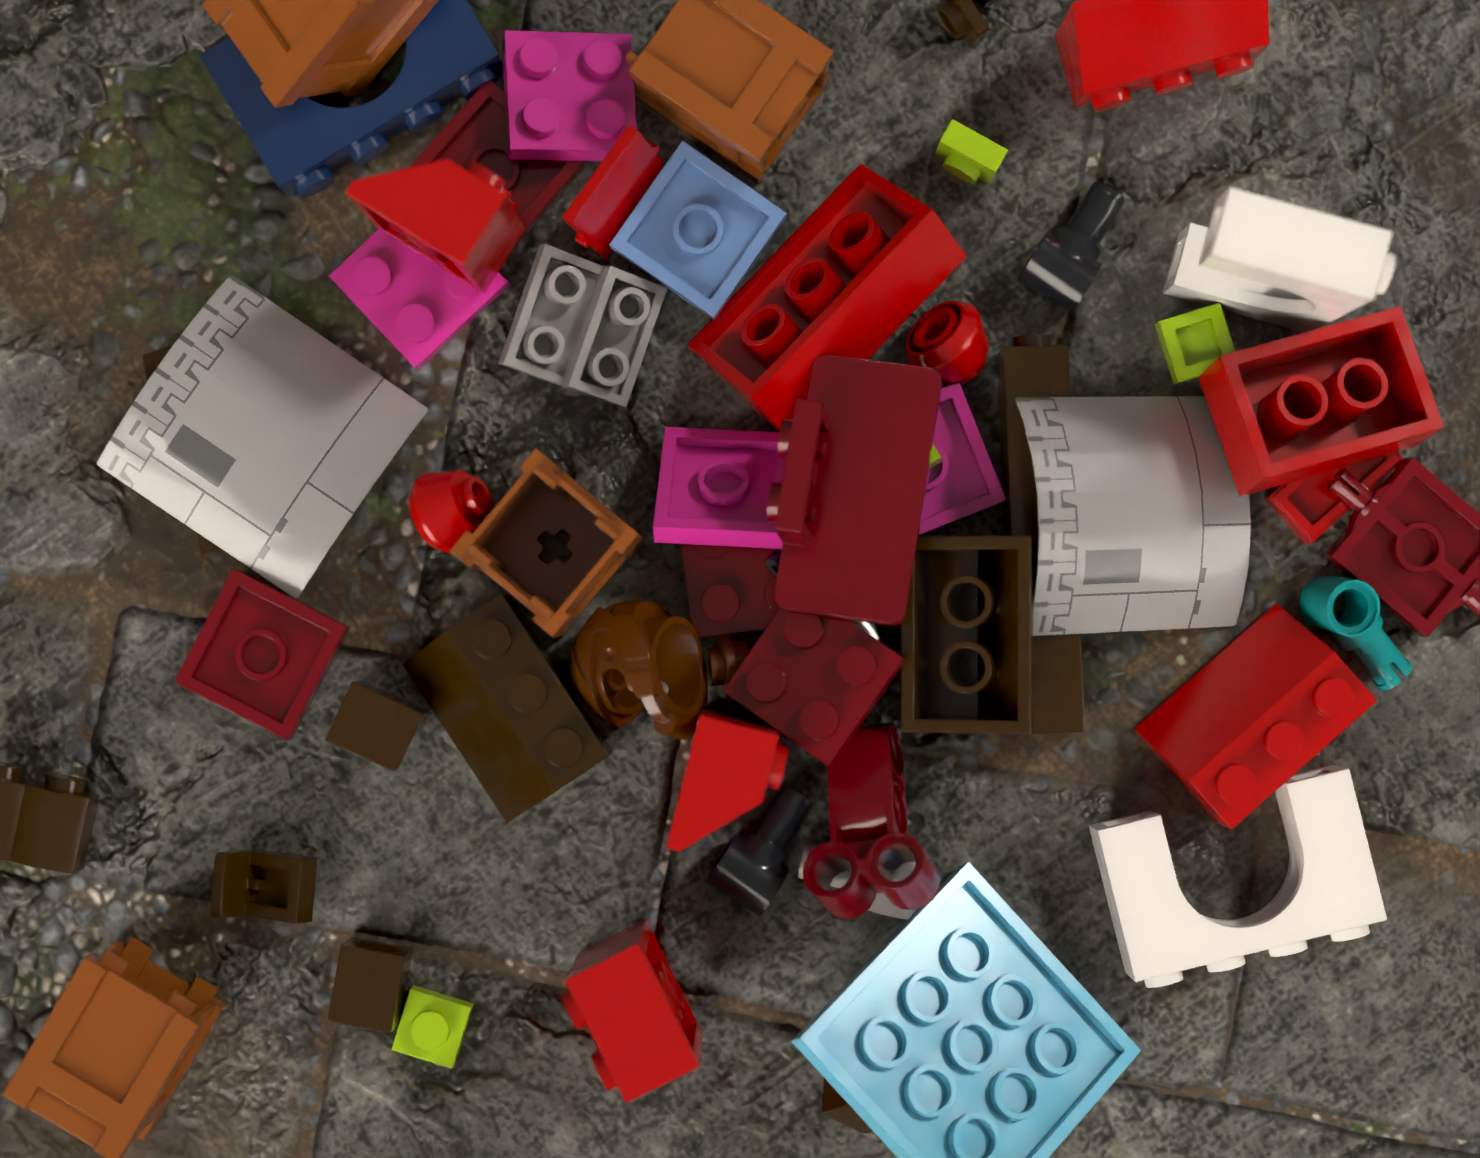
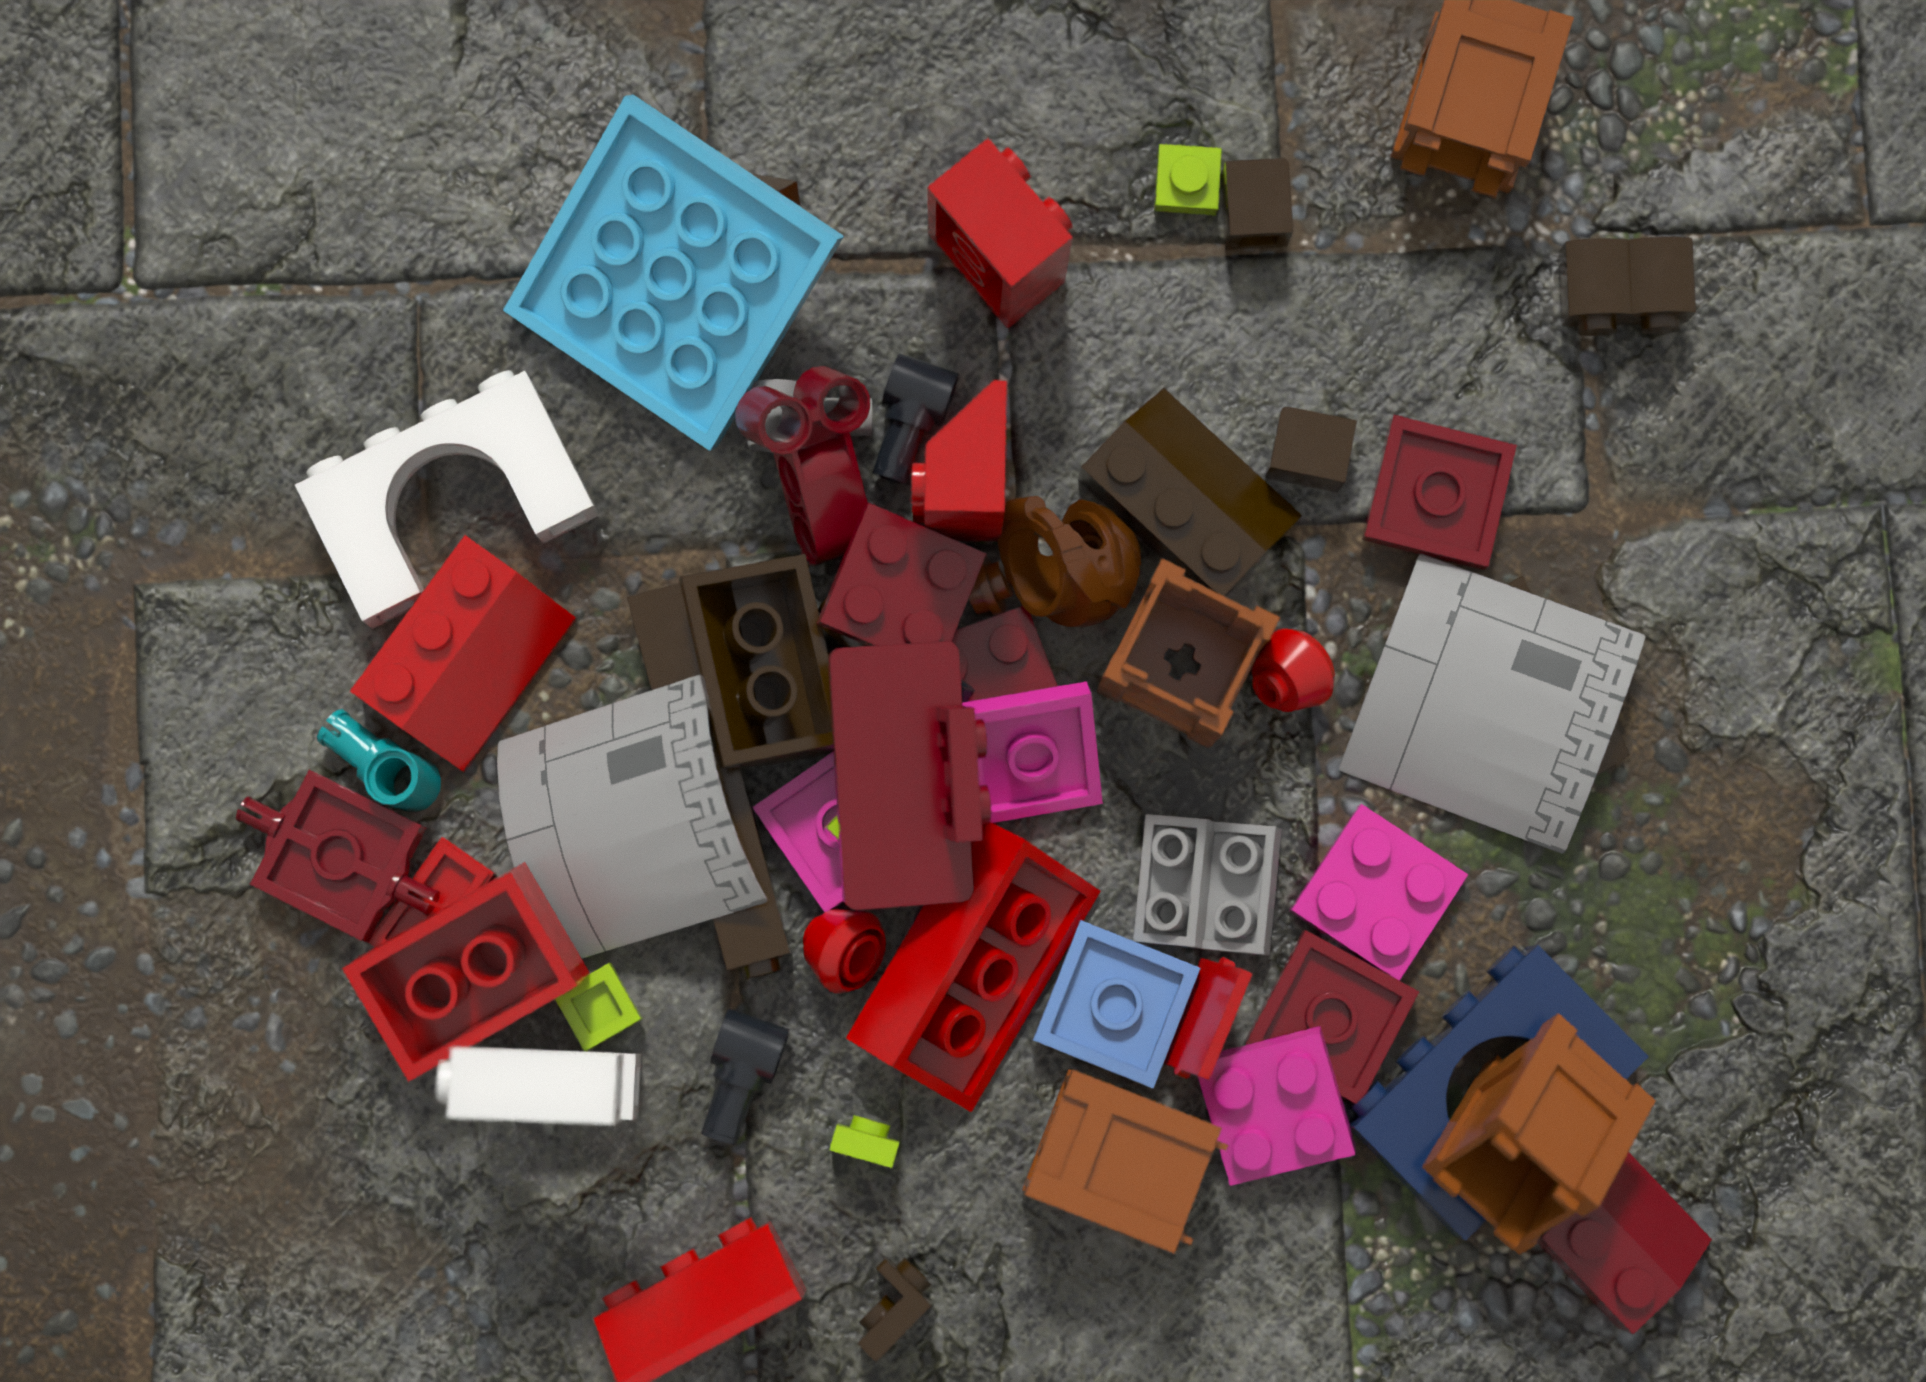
camera: 160 degrees right, 5 degrees down
(263, 885) = (1381, 273): dark brown bracket -> none
(446, 215) = (1361, 936): red slope -> none

